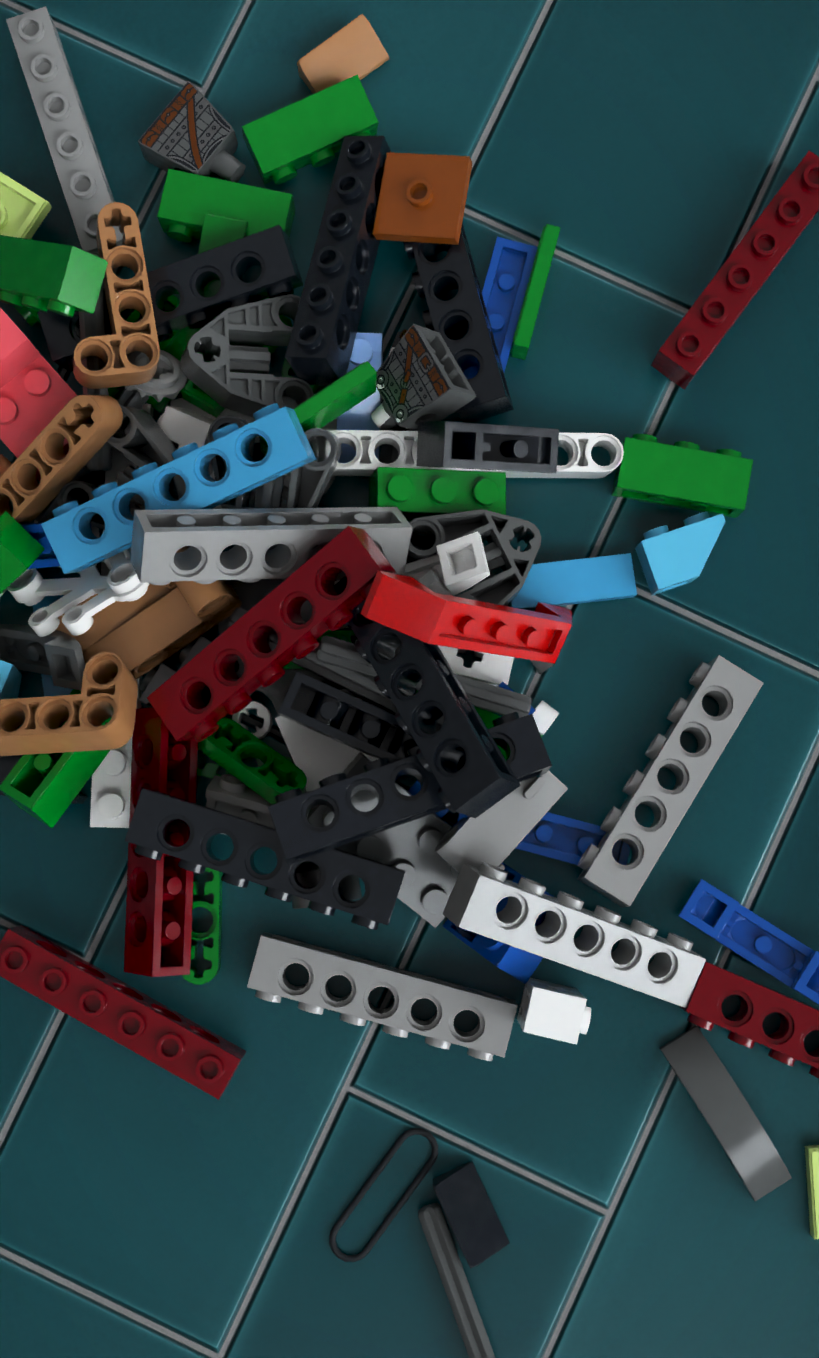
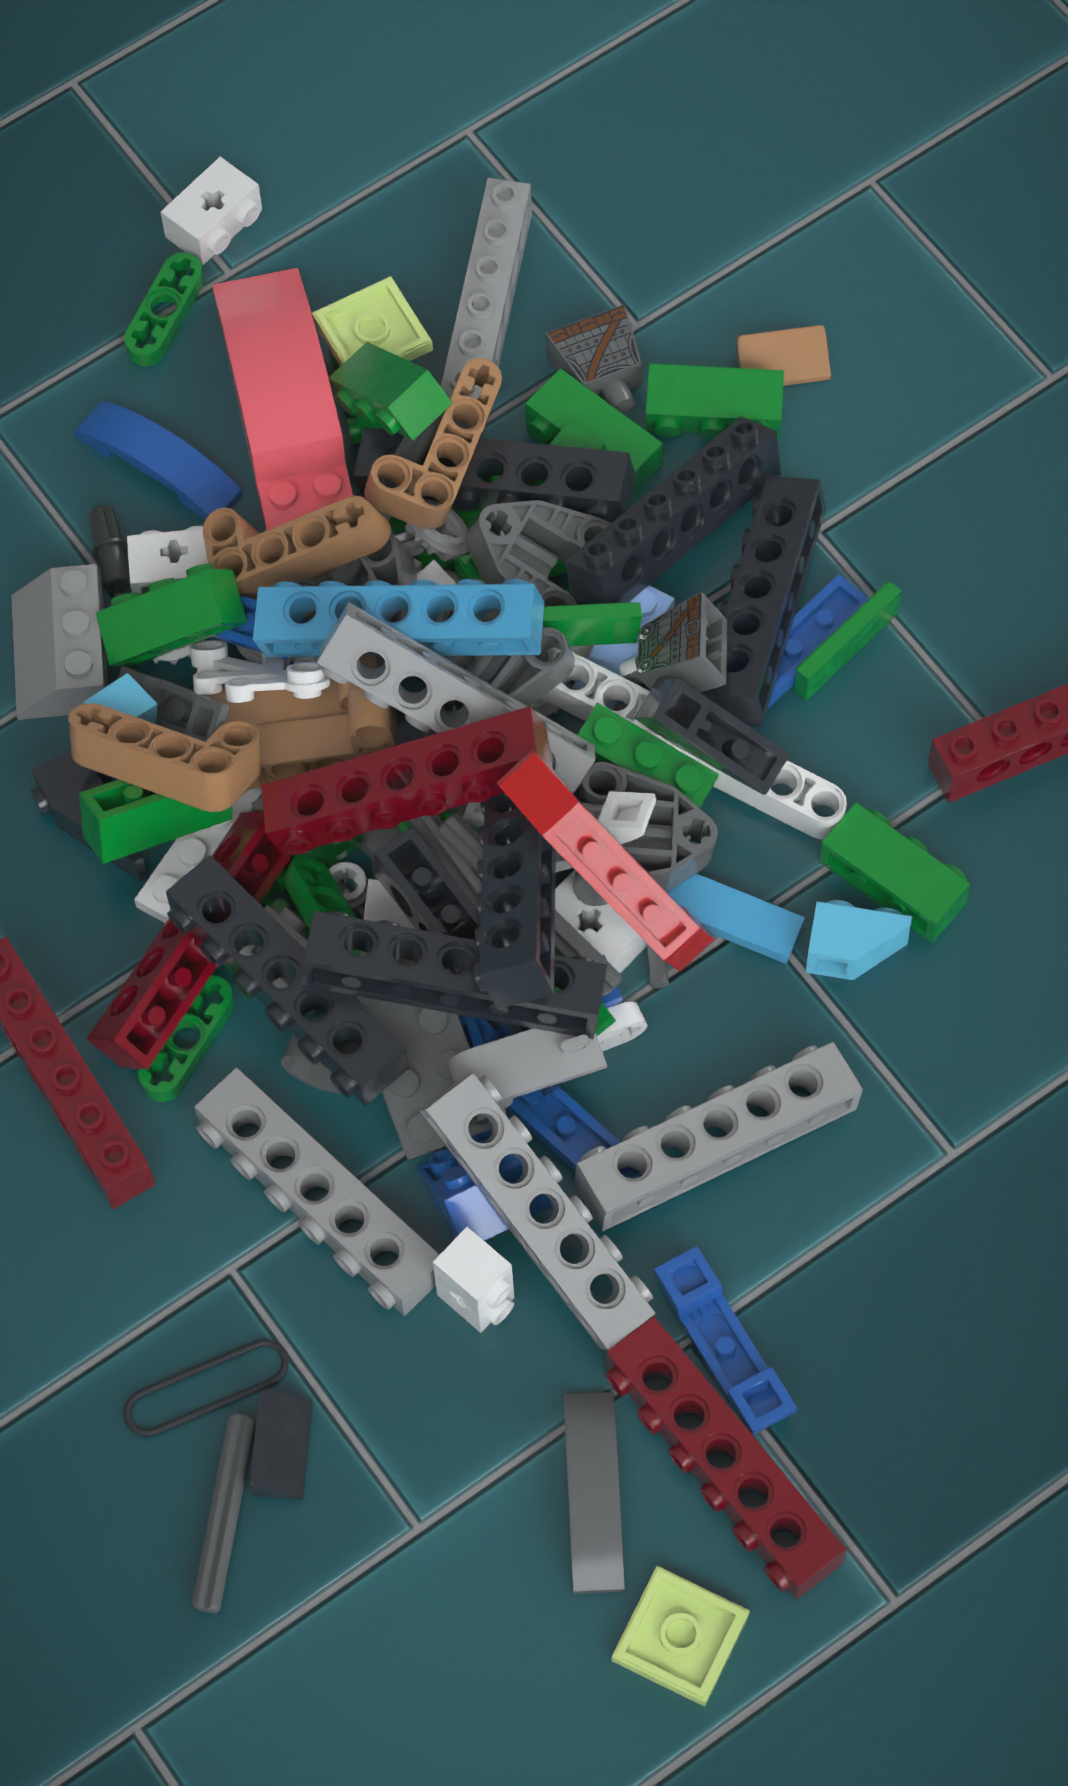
camera: 30 degrees right, 20 degrees down
(422, 198) = (781, 500): dark orange plate -> none

